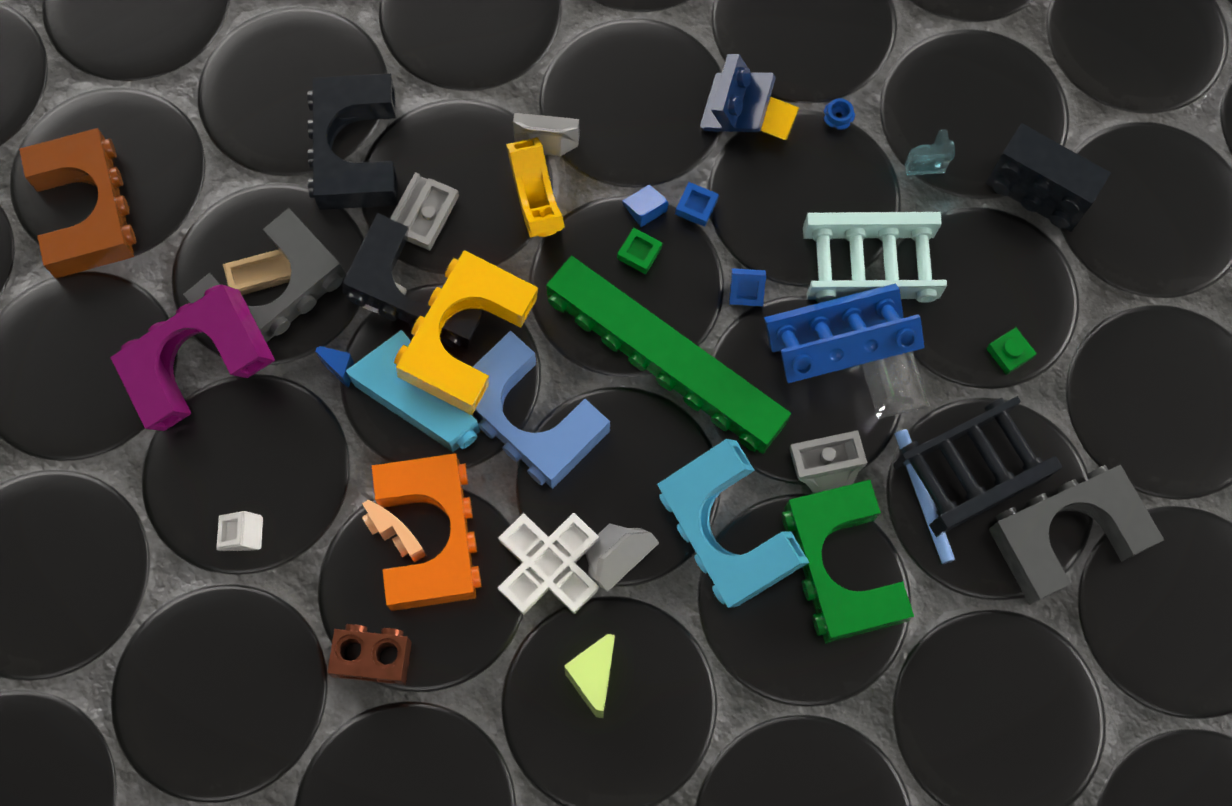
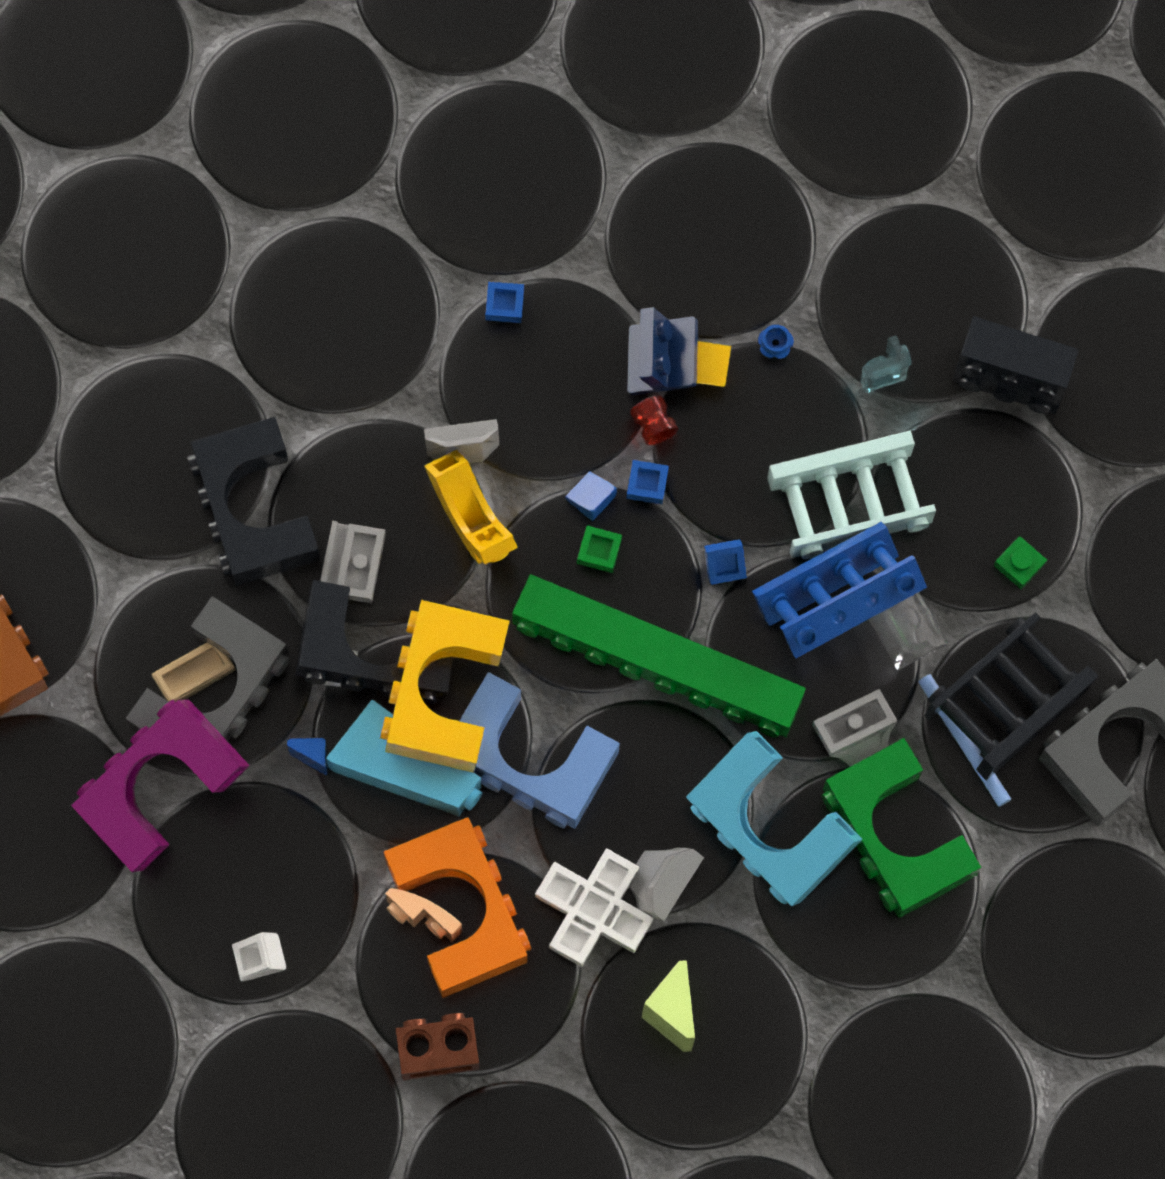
camera: 15 degrees left, 0 degrees up
(614, 29) = (504, 302): none -> blue plate
(716, 154) = (654, 420): none -> clear red wheel

